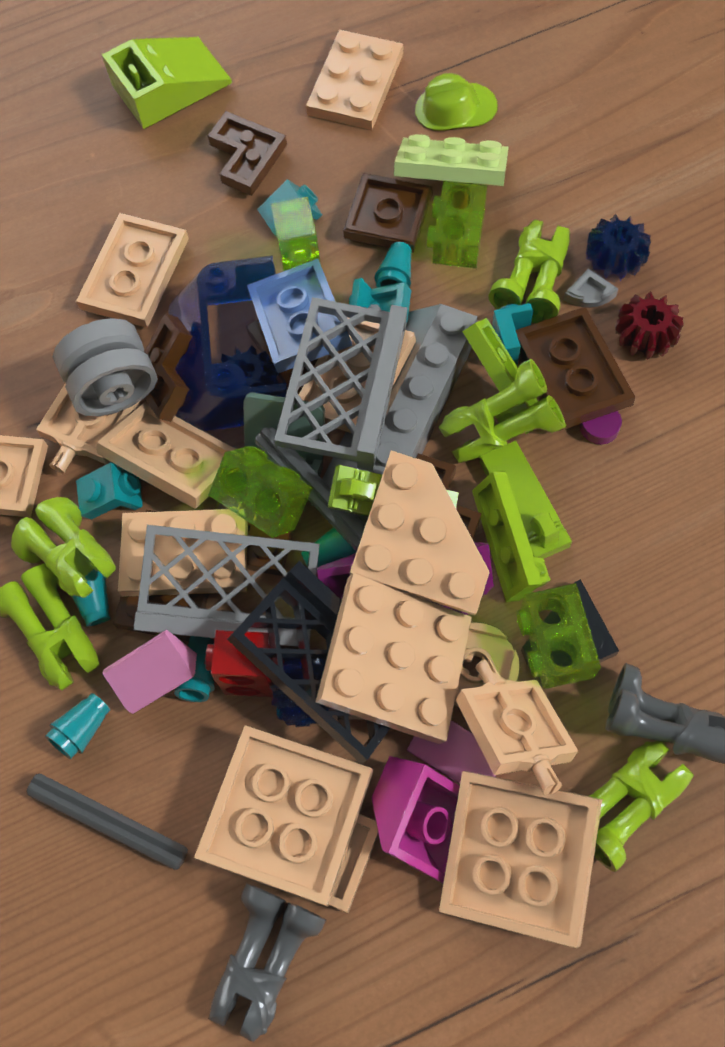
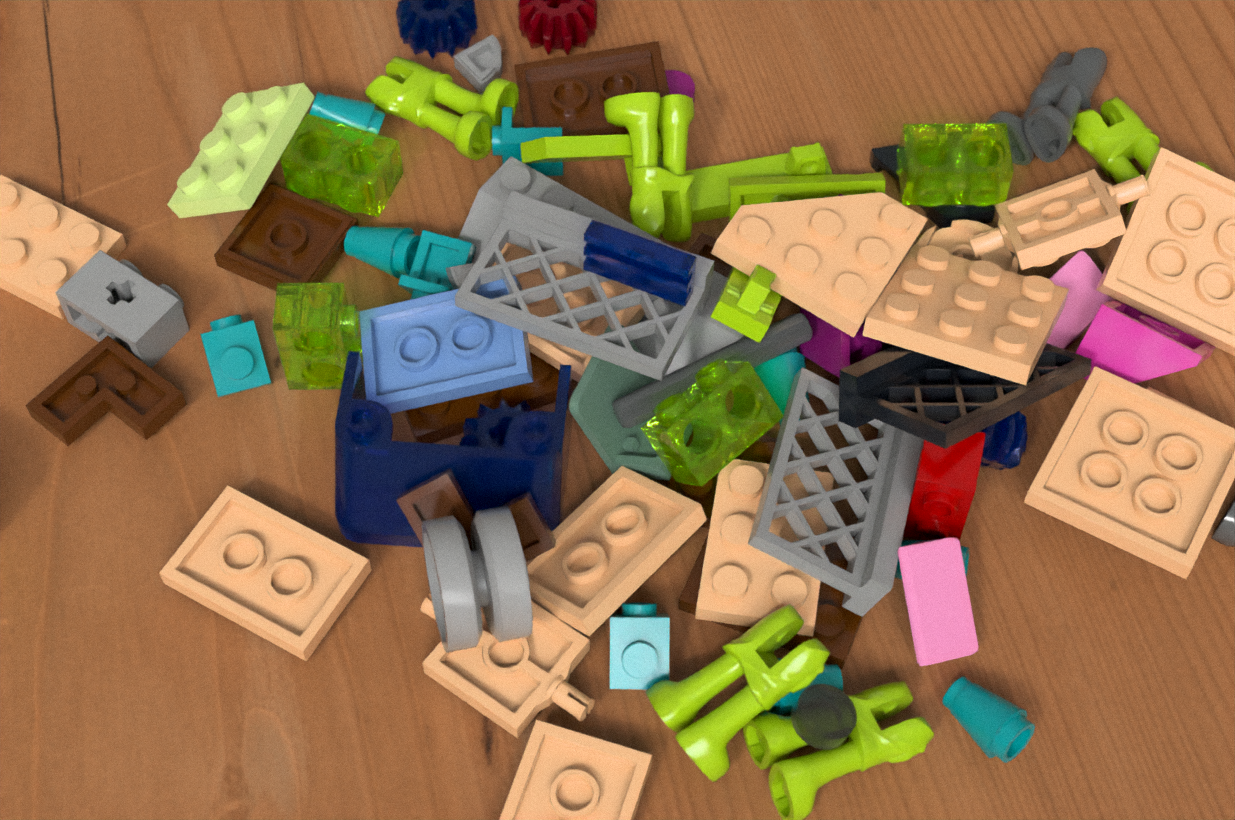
camera: 85 degrees left, 10 degrees down
(46, 605) = (823, 716): none -> clear smoke tile
(107, 821) = (1116, 703): dark grey axle -> none
(308, 138) = (121, 303): none -> light grey brick
(354, 400) = (639, 262): none -> clear blue tile
(455, 103) = (131, 145): lime piece -> none
(499, 216) = (348, 112): none -> teal cone

